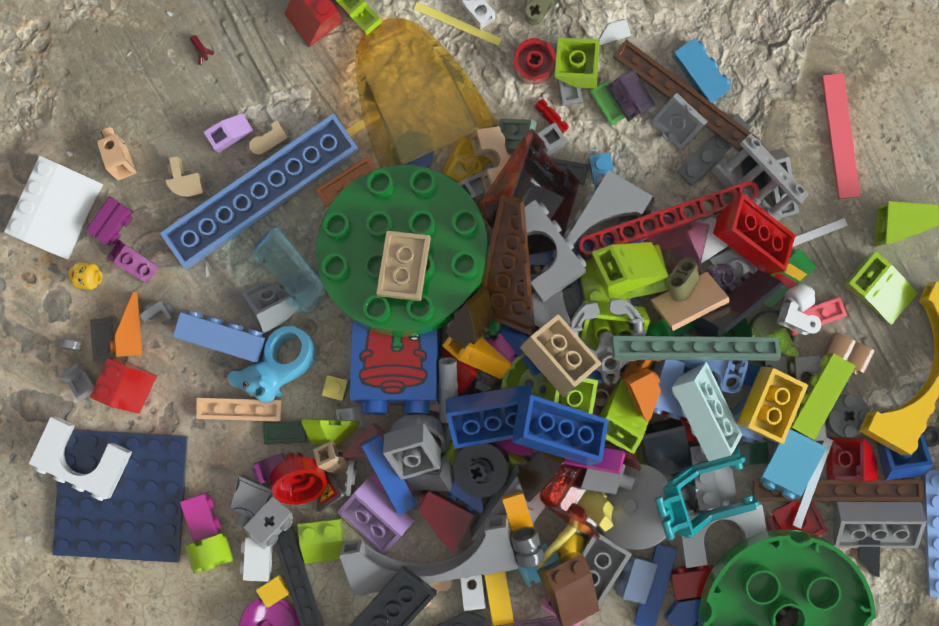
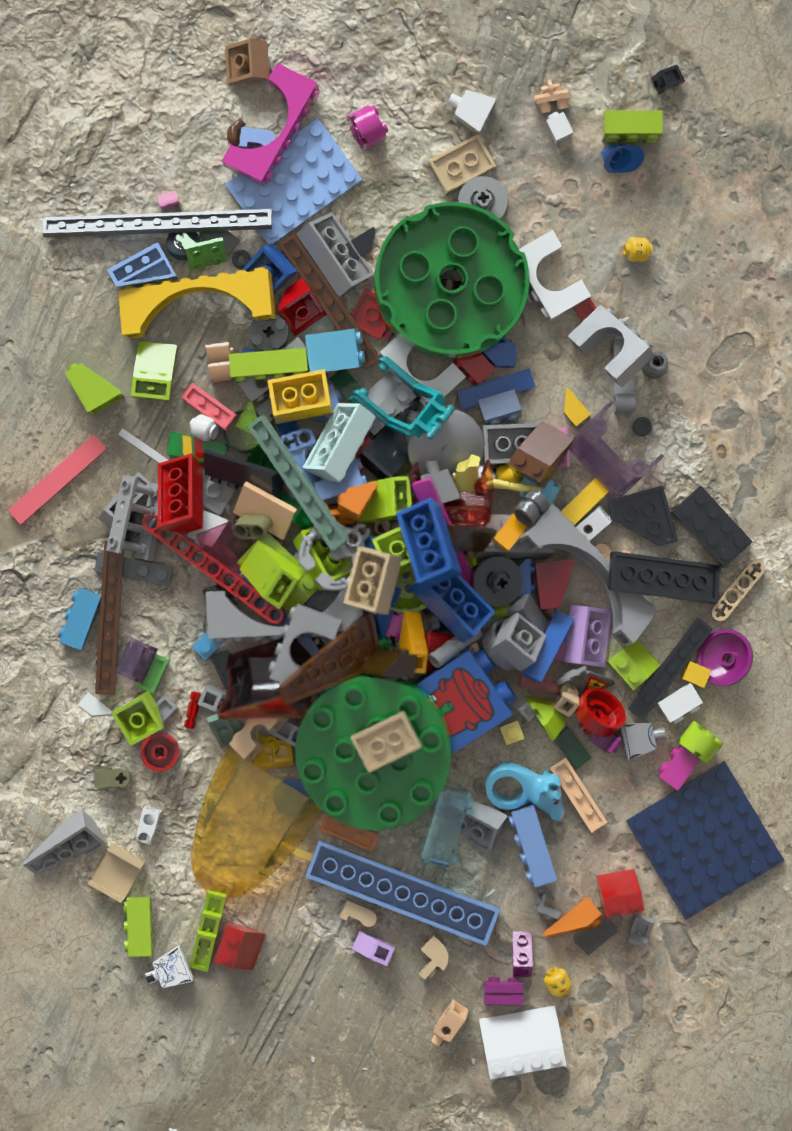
camera: 125 degrees left, 0 degrees up
(50, 458) = (712, 910): white arch -> none
(70, 345) = (617, 956): light grey tile -> none
(201, 50) = (324, 1014): dark red bar -> none
(270, 513) = (638, 716): light grey brick -> none
(457, 23) = (169, 831): light yellow sticker -> none
(678, 121) = (131, 610): light grey plate -> none
(722, 274) = (227, 499): clear purple head -> none
(798, 321) = (224, 419): white leg -> none
(811, 486) = (337, 324): white sticker -> none

